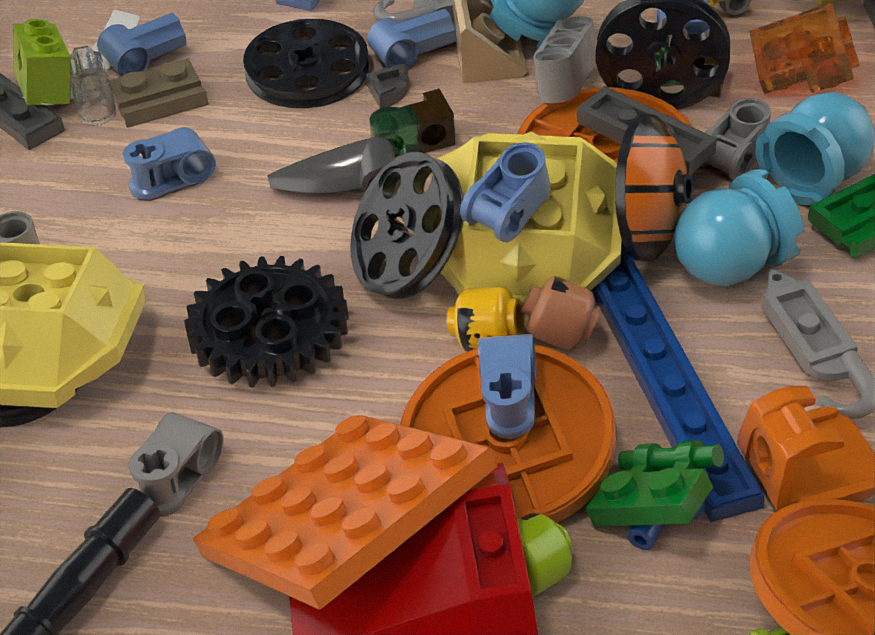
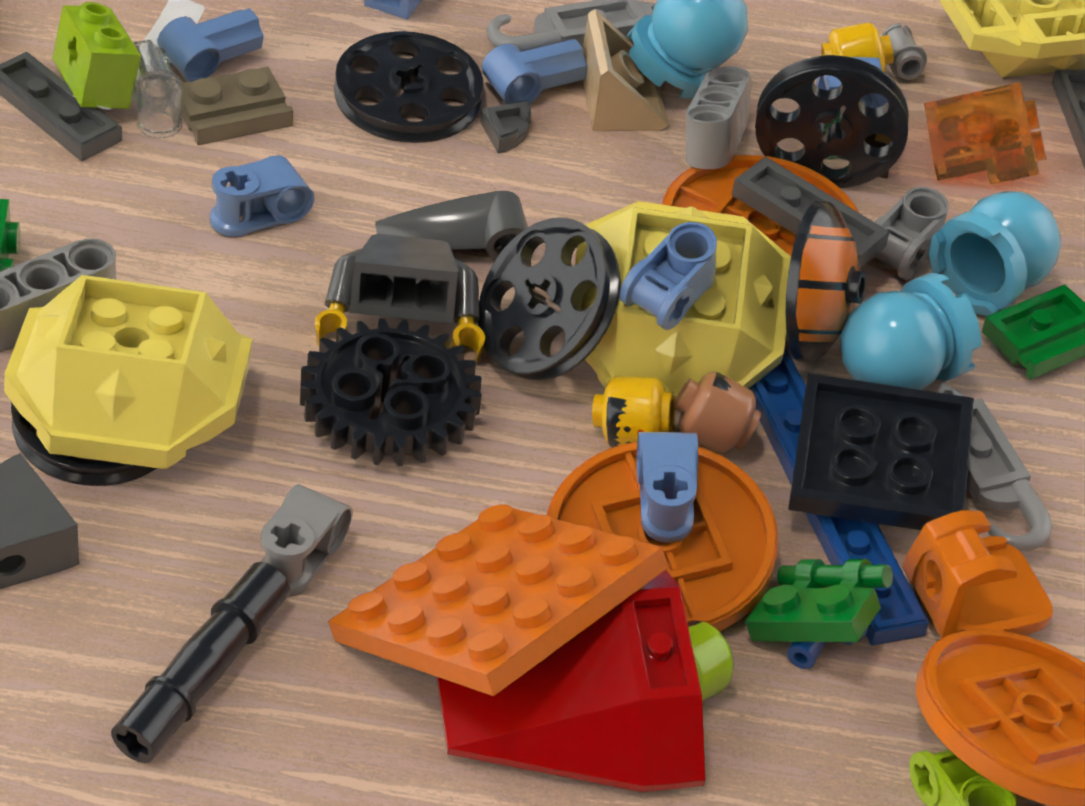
camera: 10 degrees left, 0 degrees up
(284, 222) = (405, 281): none -> dark grey torso
(416, 126) = (546, 180): leg -> none
(712, 338) = (881, 452): none -> black plate

